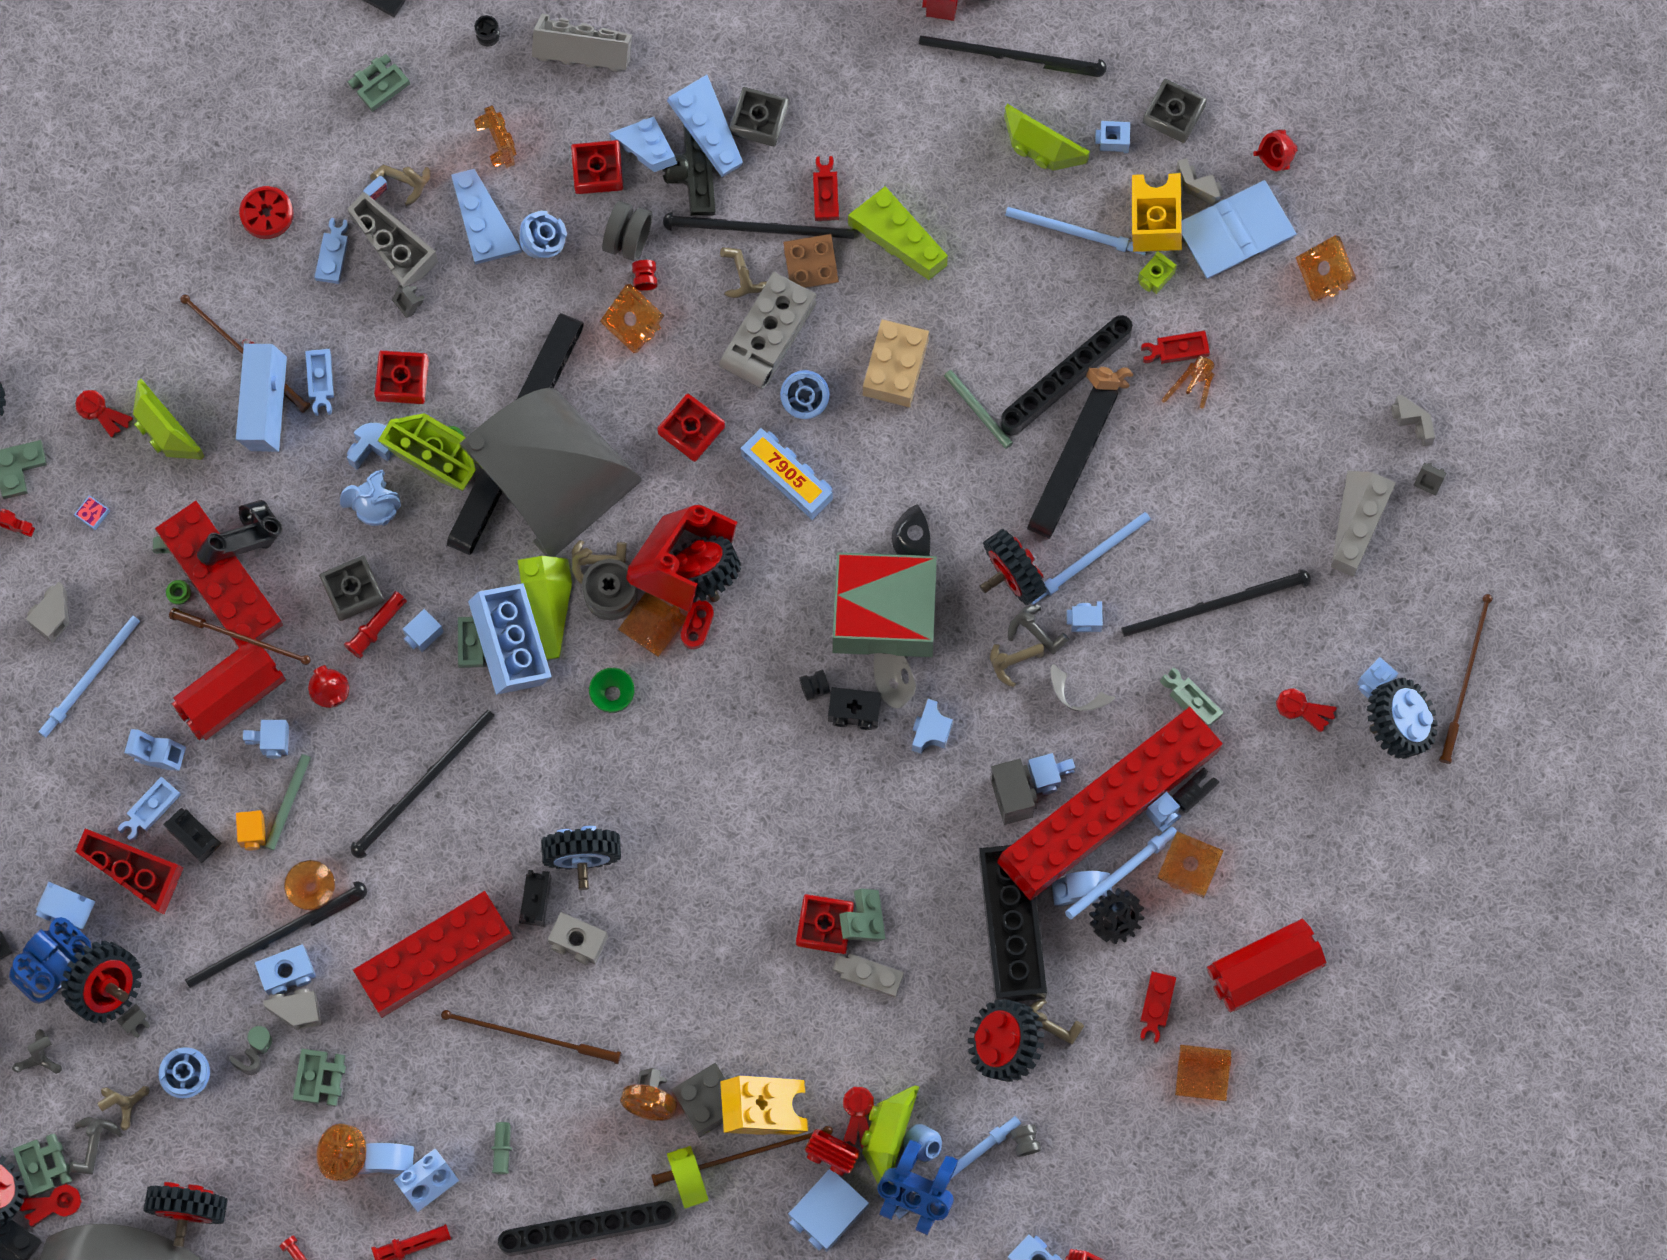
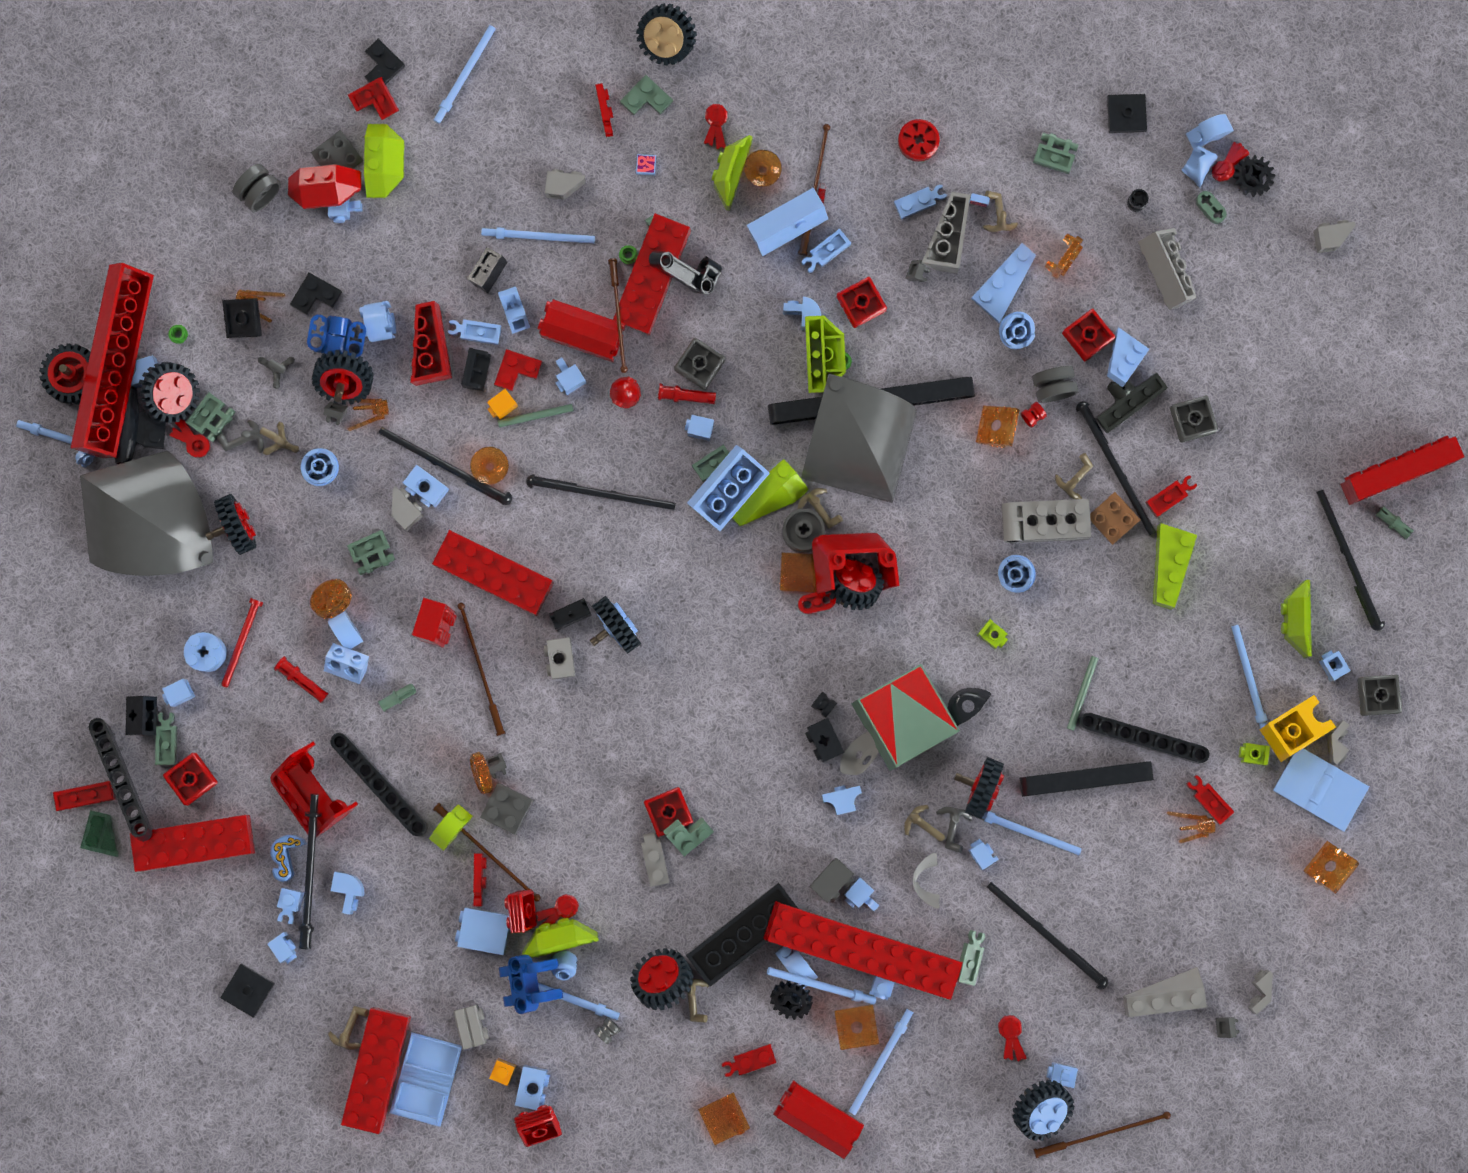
camera: 55 degrees right, 10 degrees up
(89, 753) = (487, 269): none -> hinge
(160, 968) = (378, 406): none -> clear orange plant
(178, 381) = (764, 159): none -> clear orange dish
(215, 791) = (514, 364): none -> red plate
(260, 1042) = (370, 500): leg -> none
(371, 500) = (764, 339): light blue helmet -> none
(448, 1044) = (434, 623): none -> red brick
(611, 678) = (742, 566): green piece -> none
(691, 412) = (957, 505): red brick -> none
(704, 119) = (1166, 386): light blue wing -> none
(761, 1106) = (521, 847): yellow brick -> none
(768, 1181) = (479, 881): none -> red plate
(786, 473) = (956, 595): brick -> none
(854, 469) = (985, 635): none -> lime brick
(895, 363) = (1078, 619): tan brick -> none
(1105, 378) = (1156, 766): medium nougat plate -> none
(1191, 793) = (905, 998): black hinge -> none
(1221, 821) = (900, 1028): none -> light blue bar
(1277, 150) = (1395, 782): red helmet -> none

